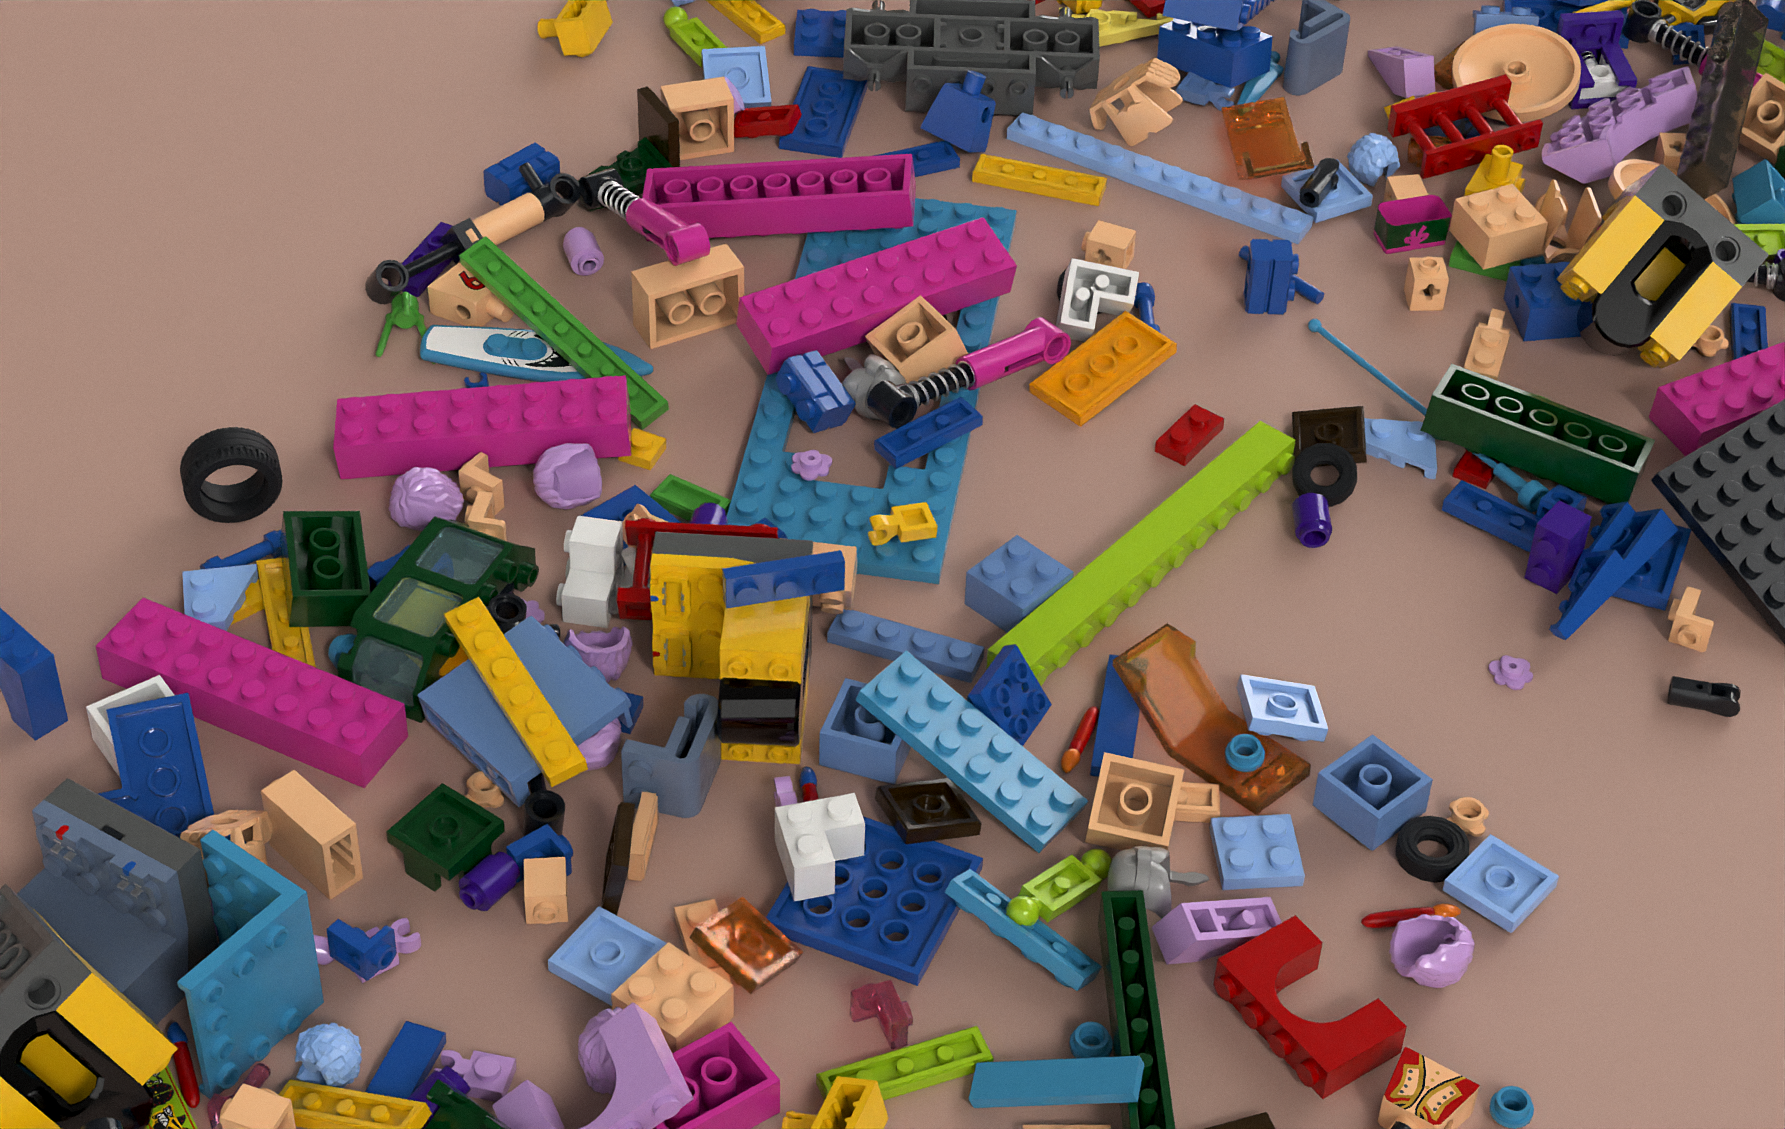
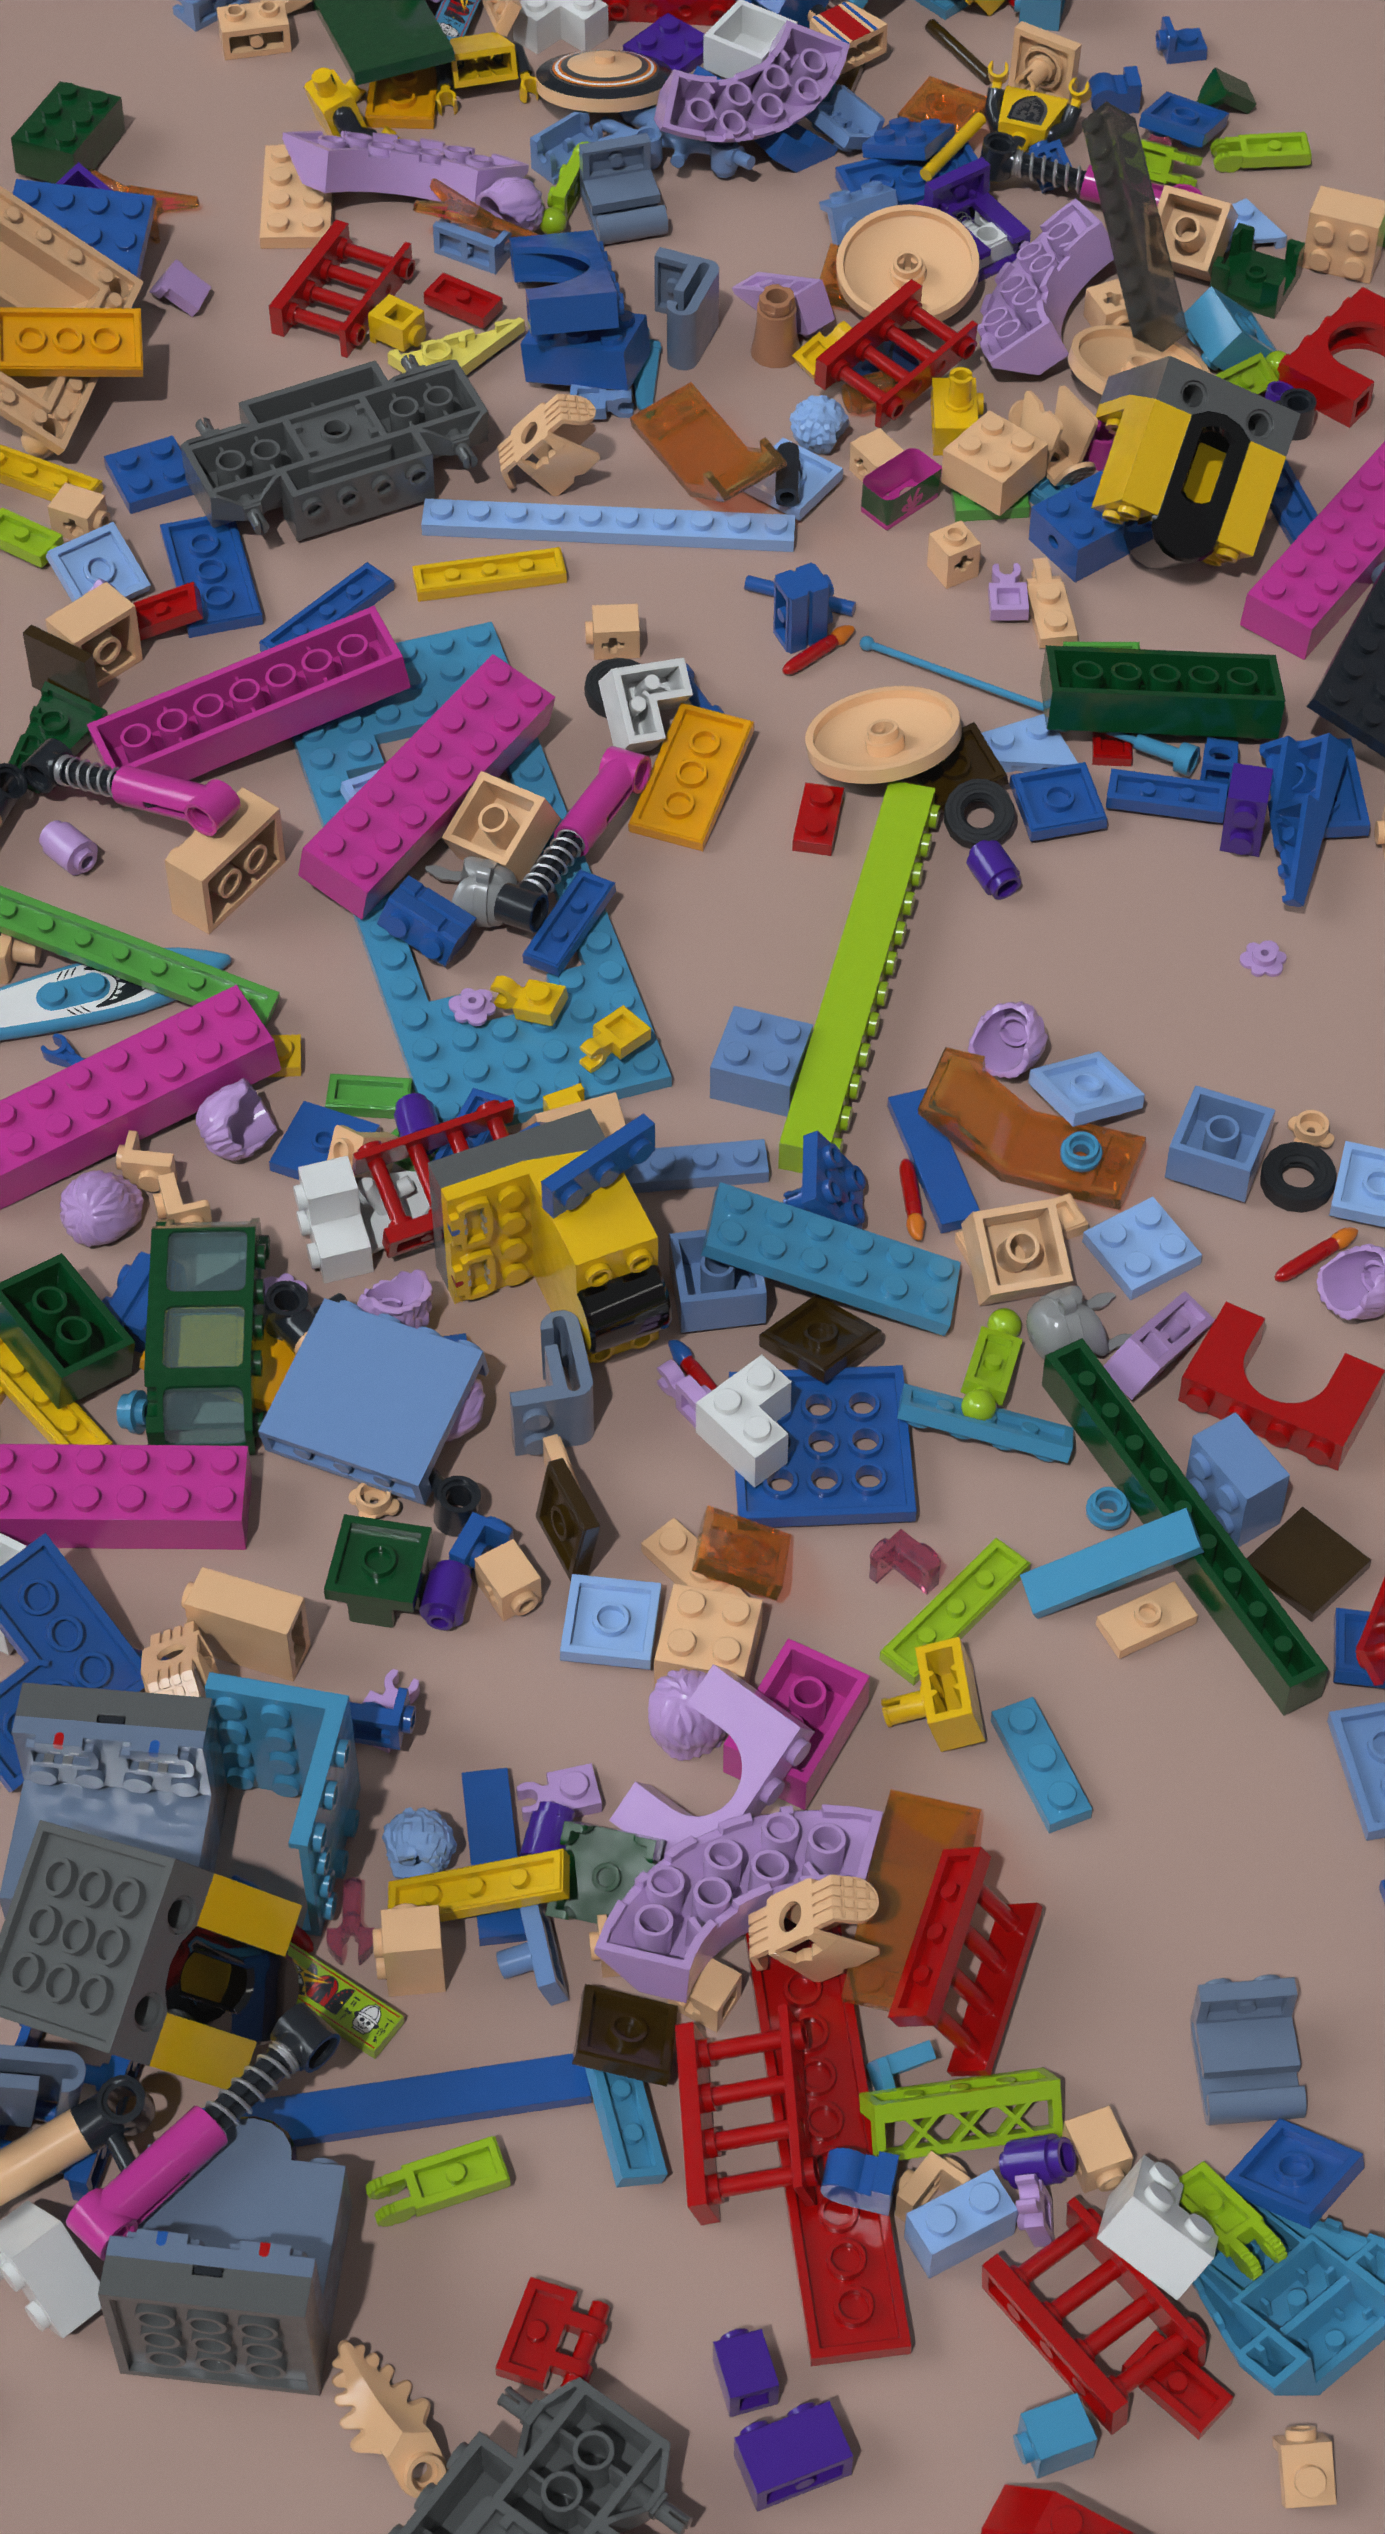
camera: 25 degrees left, 10 degrees up
(515, 692) = (366, 1388): yellow plate -> none
(750, 32) = (77, 511): none -> light nougat brick
(860, 478) = (534, 1002): none -> yellow plate
(962, 114) = (373, 528): blue torso -> none
(1210, 1060) = (1237, 1478): none -> medium blue brick
(1236, 645) = (1009, 1038): none -> lavender hair
(1278, 388) = (883, 734): none -> light nougat dish
(1291, 313) = (819, 649): none -> red piece
(1379, 81) = (775, 328): none -> nougat plant
(1401, 490) = (1058, 801): none -> blue plate
(1456, 329) = (1008, 595): none -> lavender plate

